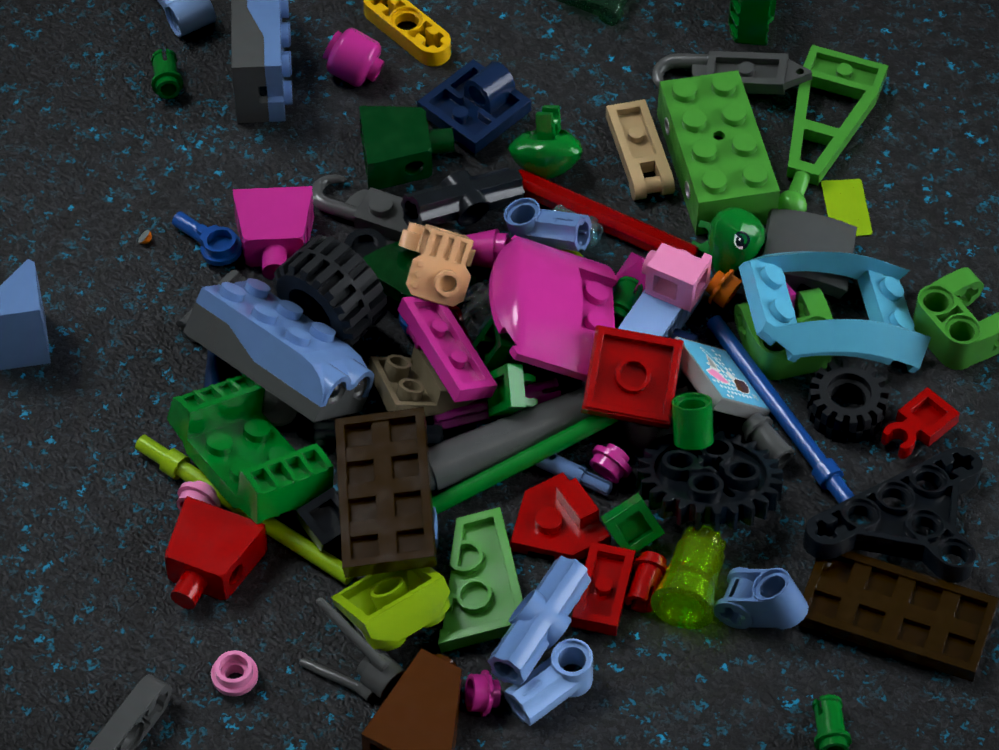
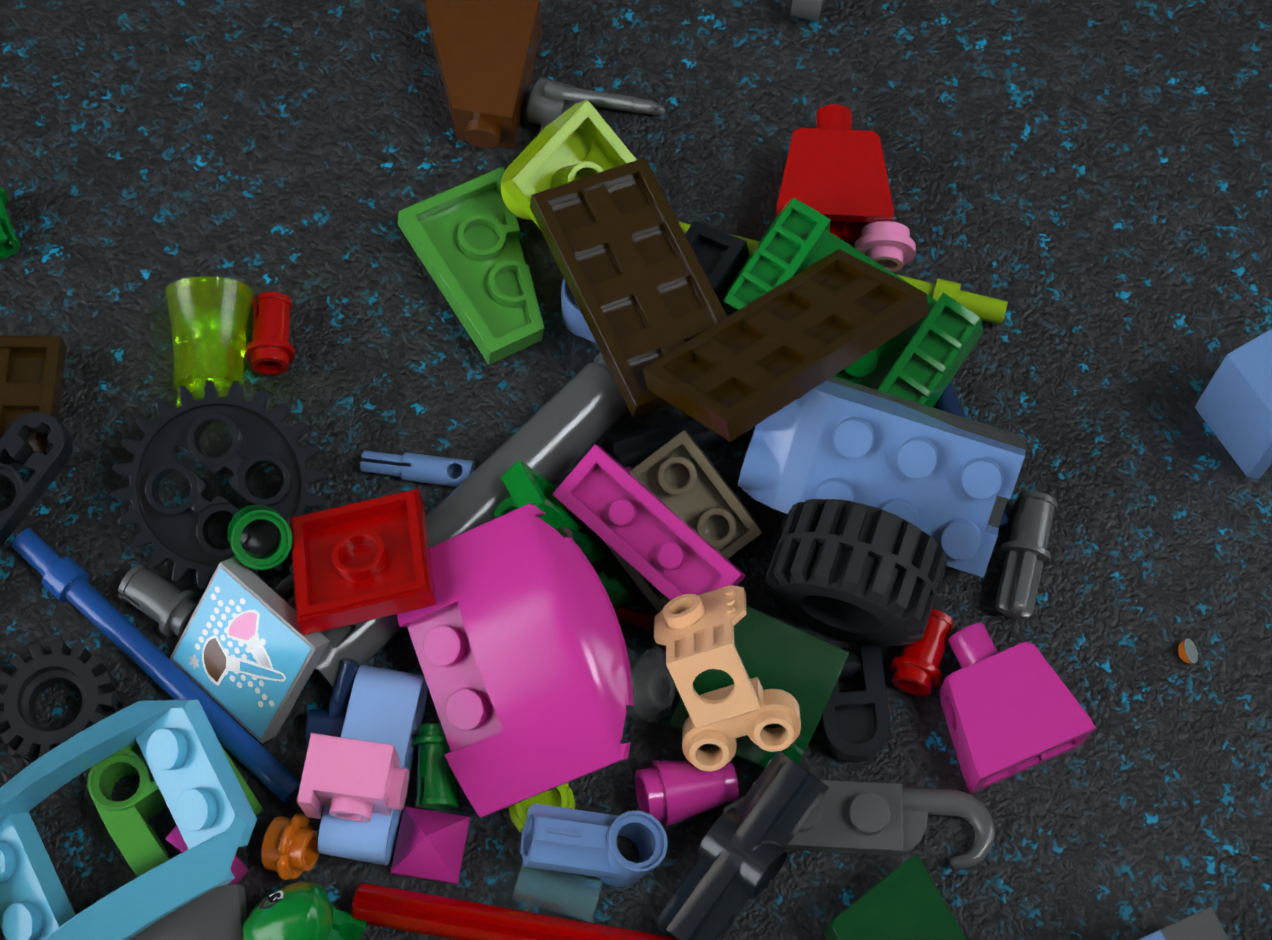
camera: 160 degrees right, 15 degrees up
(218, 244) = (1082, 662): blue plate -> none
(234, 662) = (732, 46): bright pink plate -> none
(311, 395) = (785, 343): none -> dark brown plate
(482, 693) = (426, 125): dark pink plate -> none
(520, 462) = (505, 424): green piece -> none
(539, 621) = (377, 195): medium blue piece -> none
(550, 683) = (346, 157): light blue piece -> none
(558, 520) = (414, 385): red plate -> none
(604, 598) = (322, 304): red plate -> none
(610, 462) = (367, 479): dark pink plate -> none
(632, 524) = (313, 389): green tile -> none
(761, 600) = (122, 341): medium blue piece -> none

